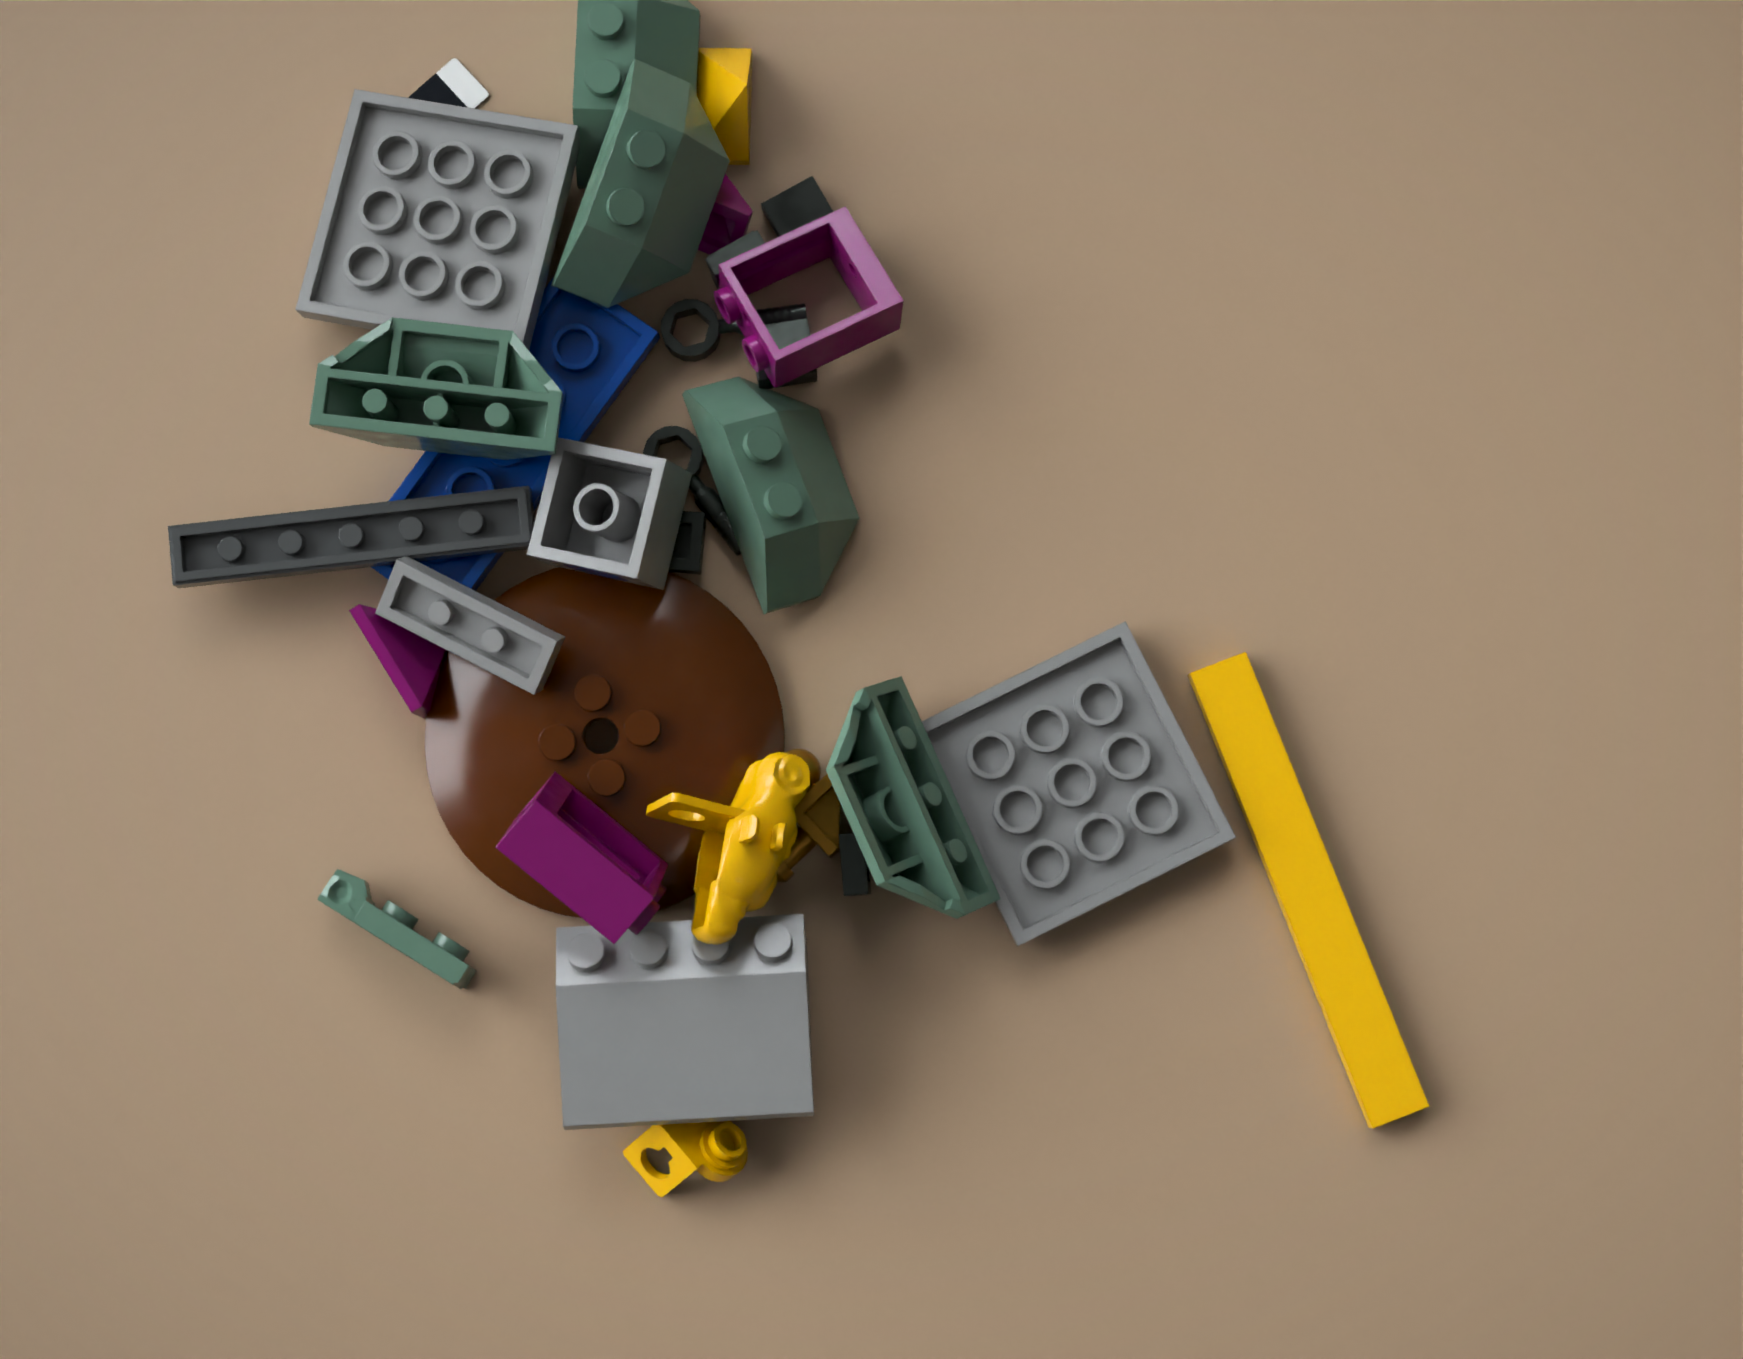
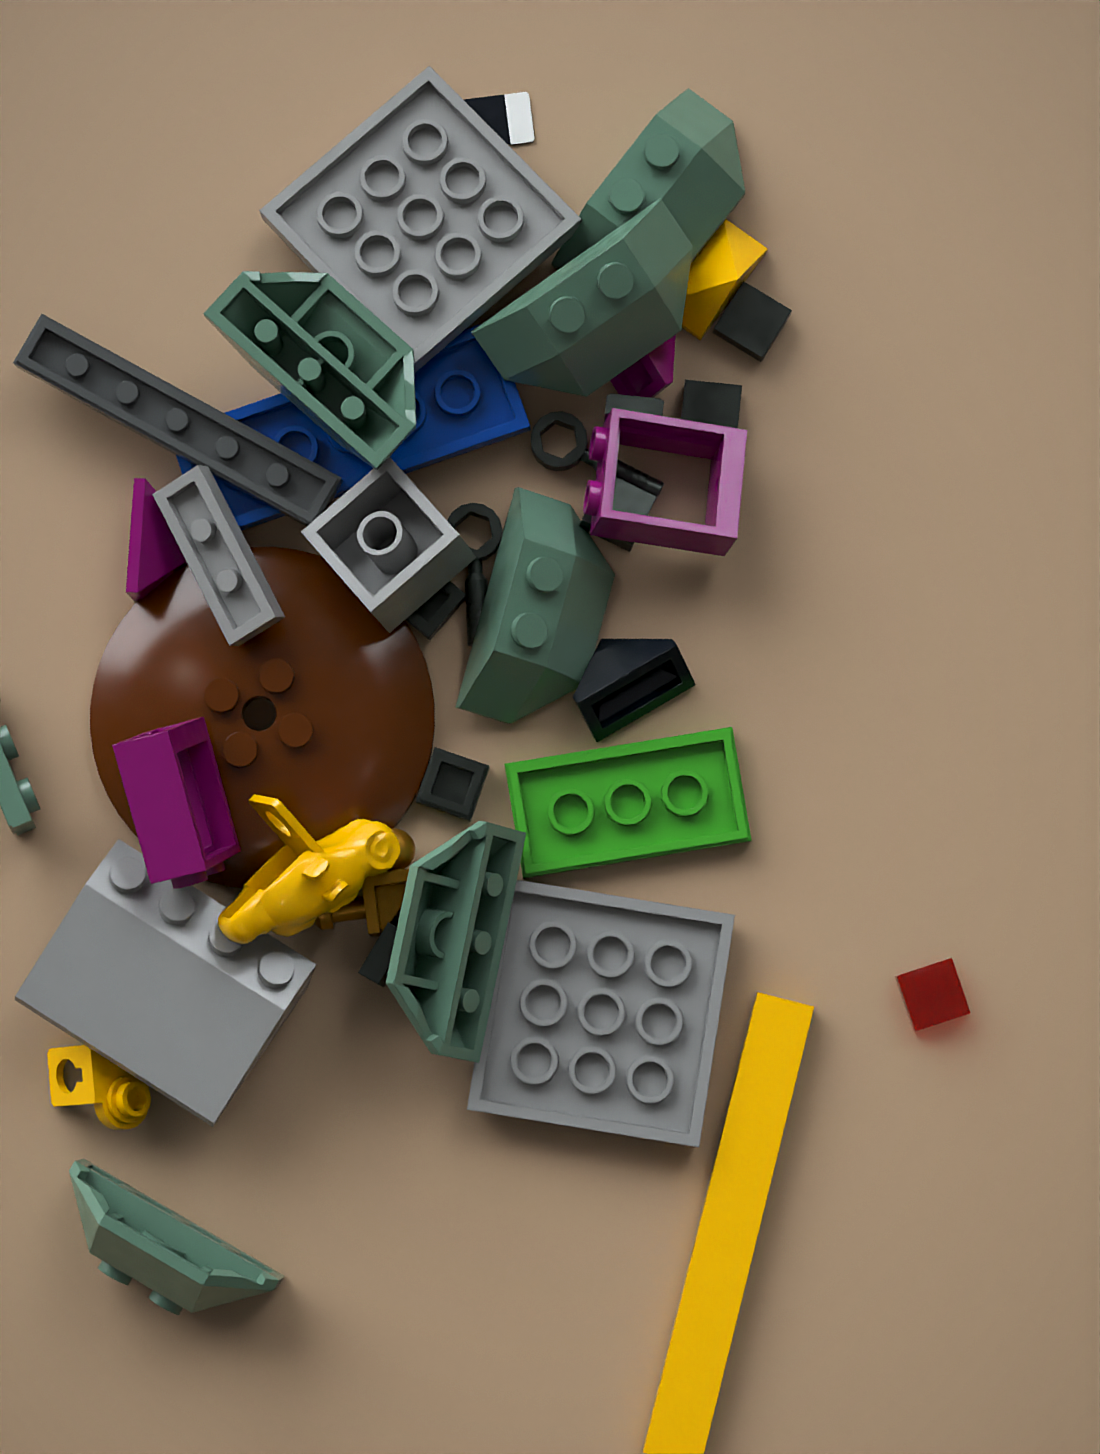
camera: 35 degrees right, 0 degrees up
(782, 117) = (752, 321): none -> pearl dark grey tile
(807, 681) = (452, 784): none -> pearl dark grey tile
(843, 1250) = (162, 1248): none -> sand green wedge
(895, 488) = (629, 681): none -> black slope
(966, 591) = (628, 802): none -> bright green tile
(1335, 572) = (932, 994): none -> clear red tile

